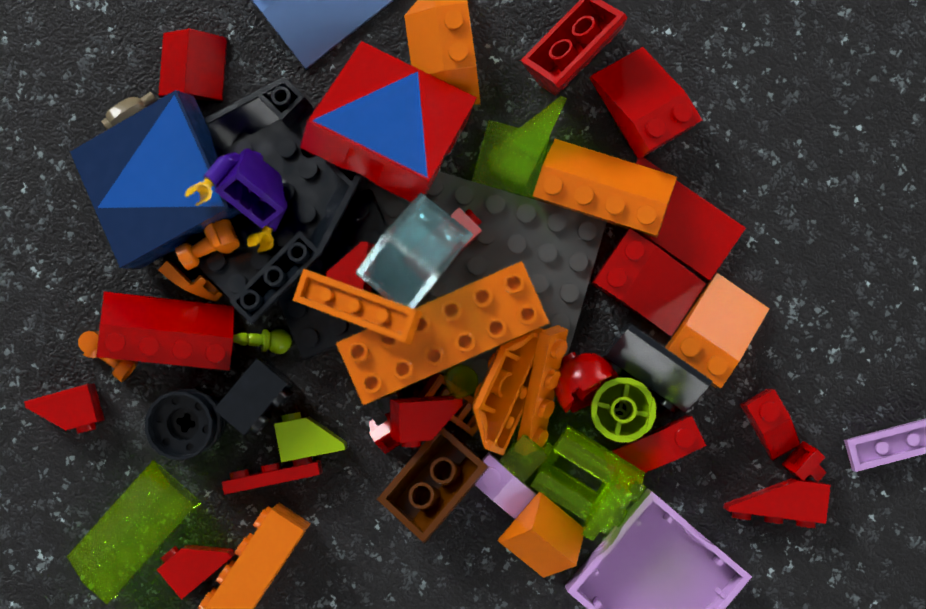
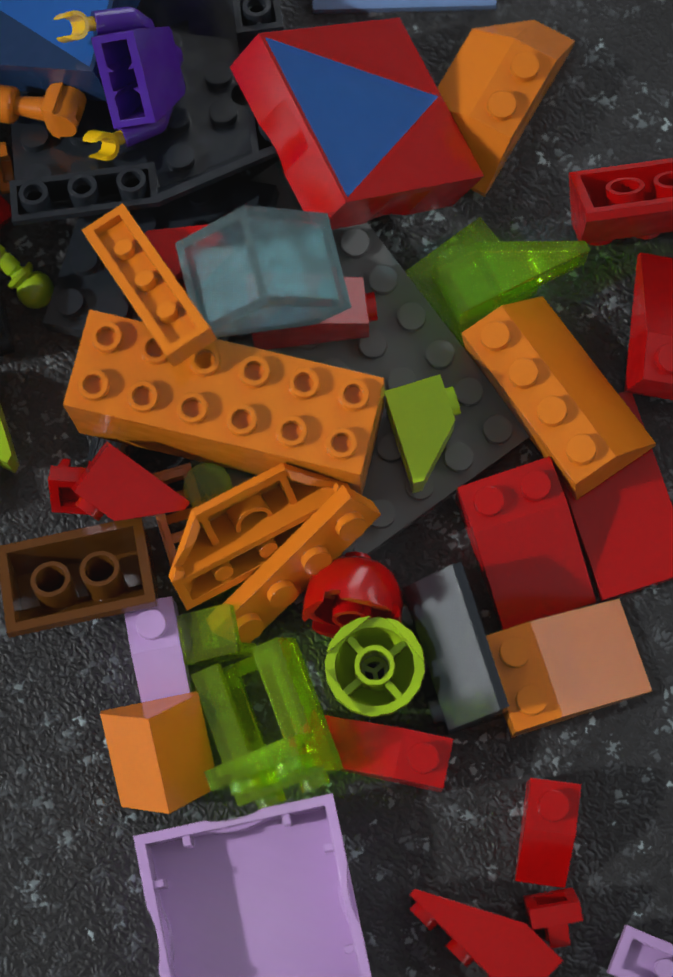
camera: 40 degrees right, 10 degrees down
(550, 262) = (421, 424): none -> lime slope

